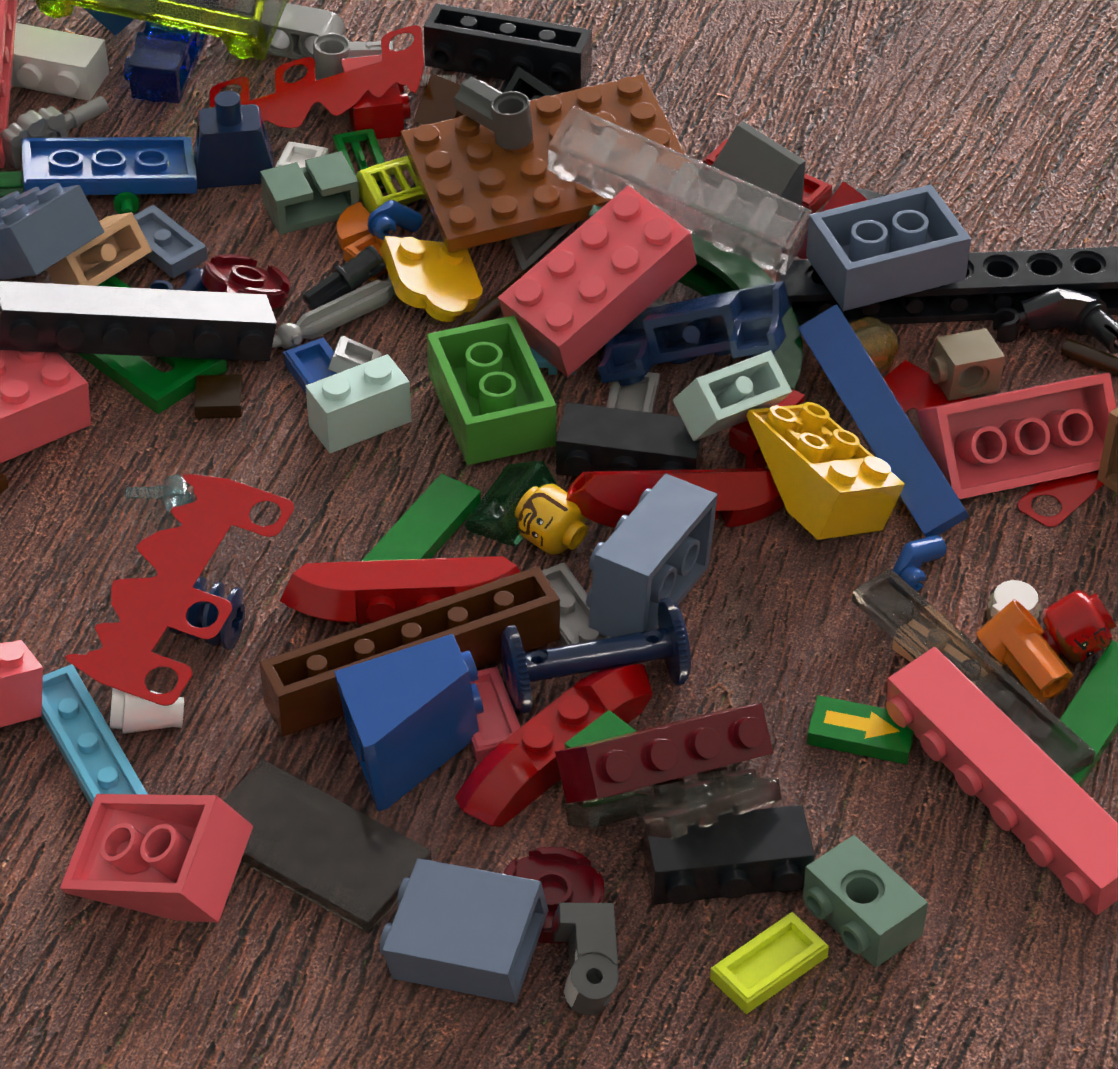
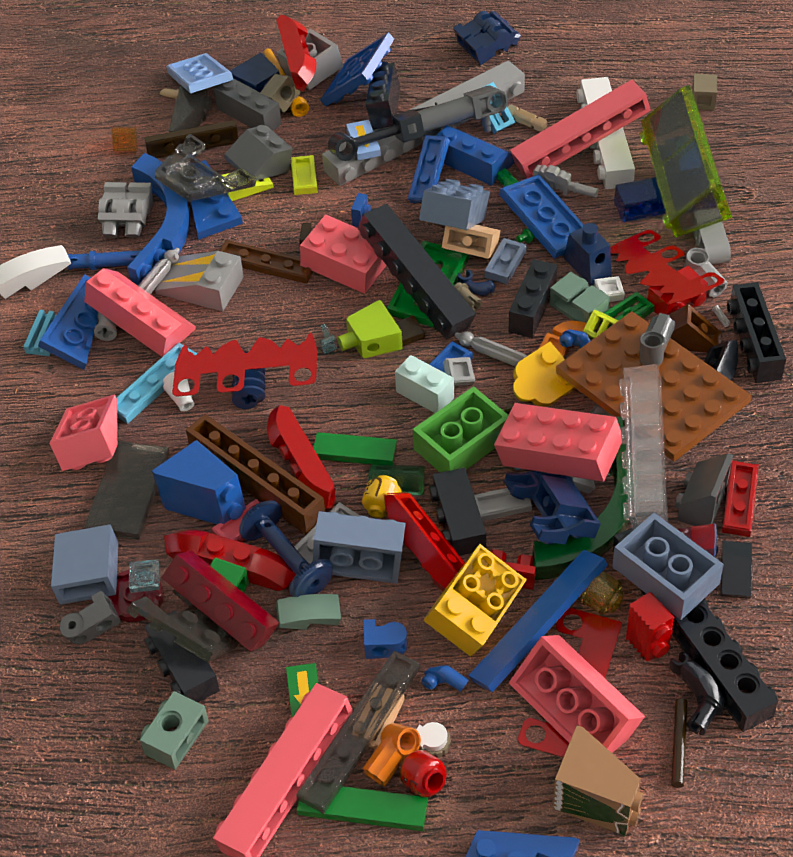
camera: 70 degrees right, 5 degrees up
(198, 427) = (371, 332): none -> lime torso
(240, 275) = (490, 303): dark red tile -> none
(271, 233) = (532, 298): none -> black brick
(345, 278) = (518, 341): black axle -> none
(542, 851) = (144, 575): none -> clear light blue plate
(714, 674) = (307, 609): none -> sand green slope
(727, 395) = (493, 534): light aqua brick -> none
(769, 962) = (126, 703): neon yellow tile -> none
(819, 606) = (383, 640): none -> blue leg
(954, 305) = (649, 627): none -> red brick
(966, 364) = (622, 650): dark tan brick -> none

